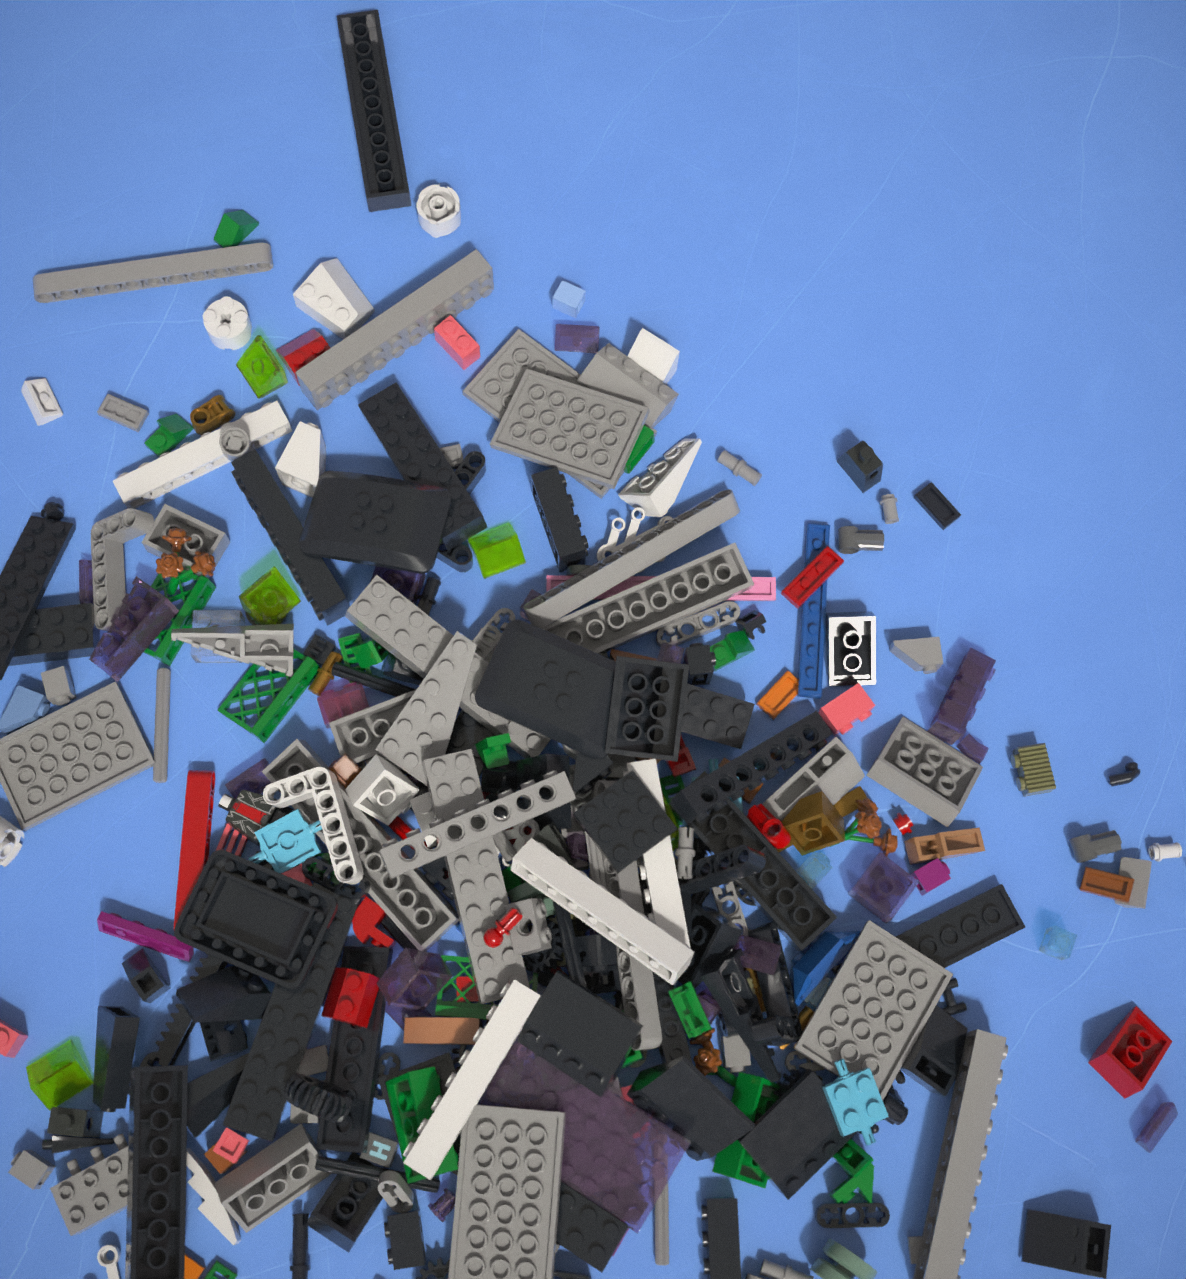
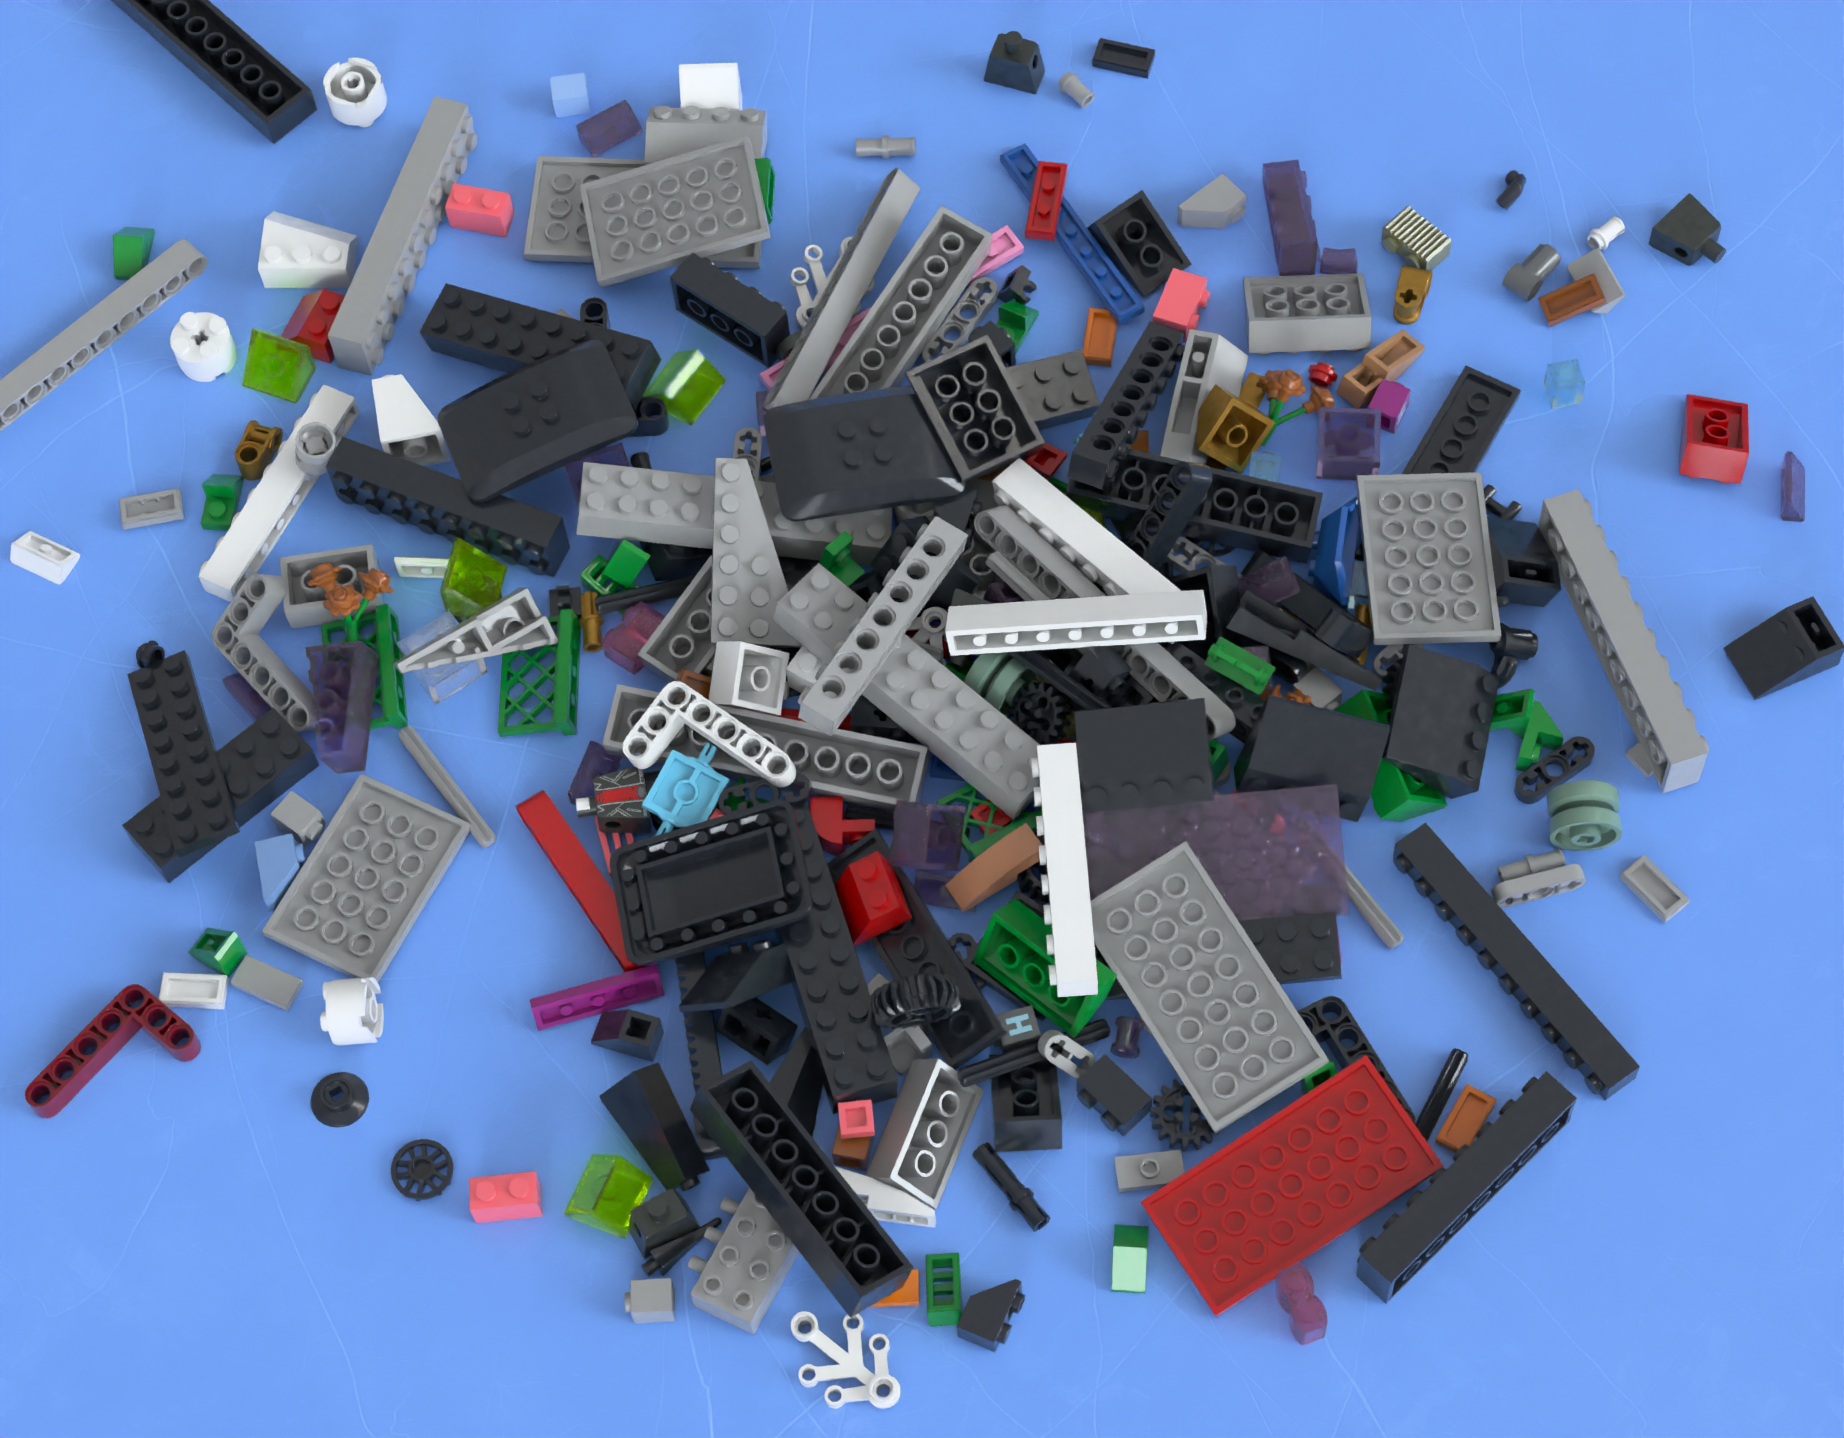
camera: 25 degrees left, 10 degrees down
(252, 561) = (421, 566): none -> white slope
(494, 936) = (983, 723): red axle -> none
(539, 938) = (994, 689): light grey brick -> none
(625, 821) = (1035, 530): black plate -> none
(661, 484) = (814, 208): white wedge -> none
(685, 853) = (1119, 524): light grey pin -> none
(769, 826) = (1192, 449): red piece -> none
(854, 540) = (1062, 141): dark grey piece -> none
(855, 1101) = (1473, 646): medium azure plate -> none
(1005, 803) = (1411, 293): none -> pearl gold piece

